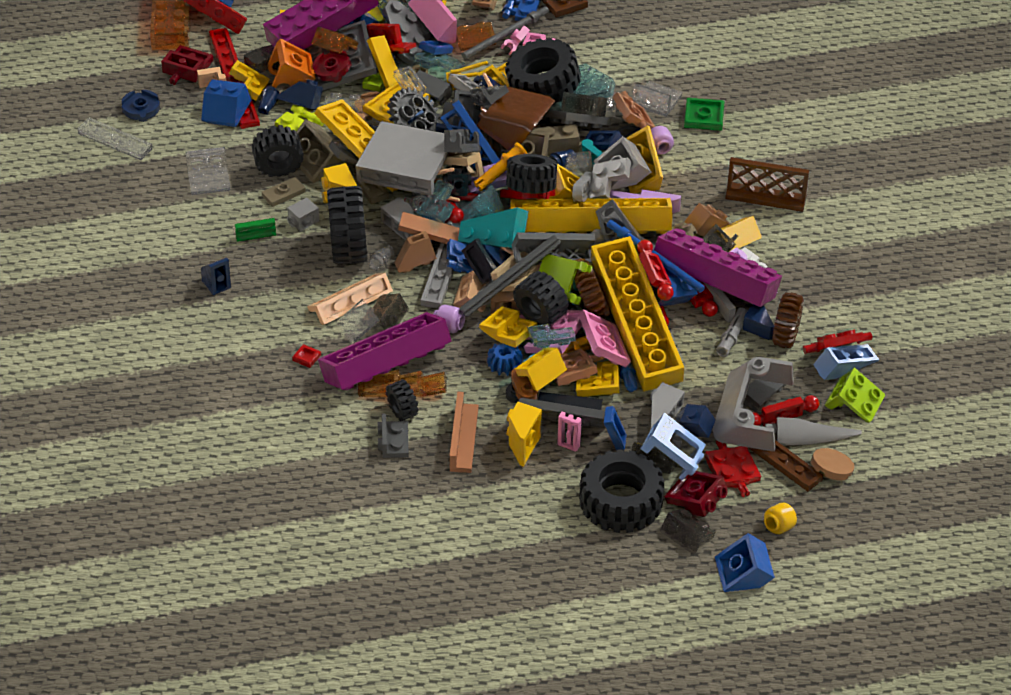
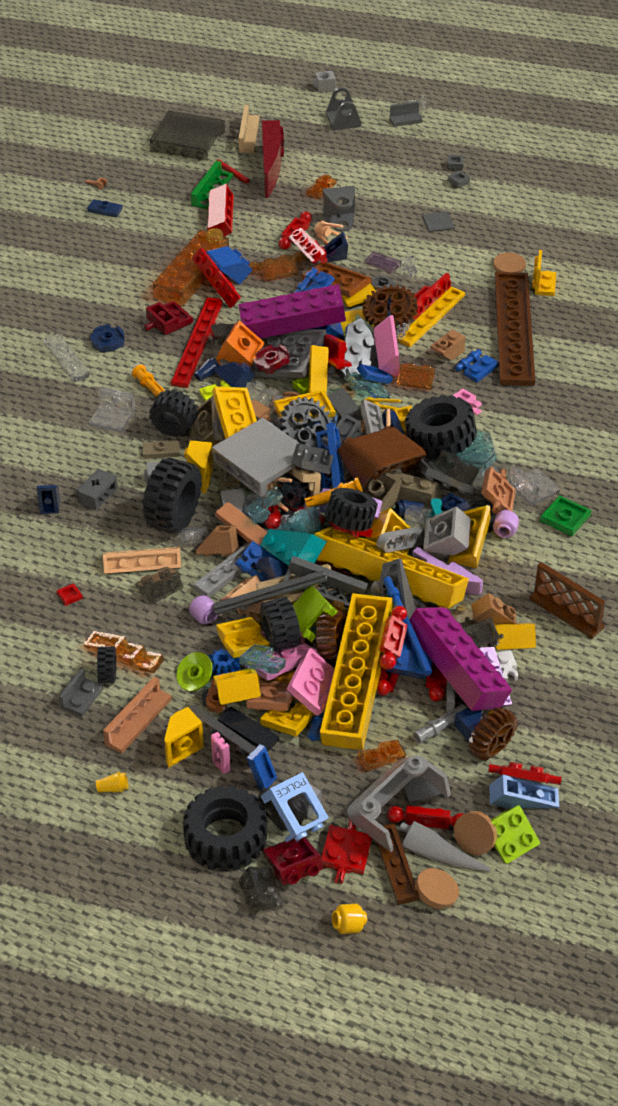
camera: 30 degrees right, 0 degrees up
(207, 75) = (176, 335): light nougat bracket -> none
(217, 131) = (147, 379): none -> light orange pin
(224, 102) = (168, 359): blue slope -> none
(254, 80) = (204, 349): yellow plate -> none
(254, 250) = (97, 489): none -> dark grey brick
(256, 230) = (121, 472): green tile -> none
(333, 41) = (284, 337): clear orange bracket -> none
(357, 321) = (129, 581): clear piece -> none
(384, 351) = (124, 616): magenta brick -> none
(401, 73) = (327, 403): clear tile -> none
(475, 373) = (188, 670): none -> lime dish
(479, 261) = (259, 567): black tile -> none
(487, 96) = (368, 427): dark grey bracket -> none
(488, 498) = (113, 783): none -> yellow cone
(516, 38) = (449, 389): bright pink plate -> none
(531, 18) = (475, 377): dark grey bar -> none
(605, 173) = (423, 535): light grey plate -> none
(666, 400) = (326, 766): light grey slope -> none
(696, 420) = (337, 792): dark blue slope -> none
(702, 379) = (386, 753): none -> clear orange slope
(744, 565) = (284, 948): blue slope -> none
(833, 405) = (475, 833): none -> medium nougat tile

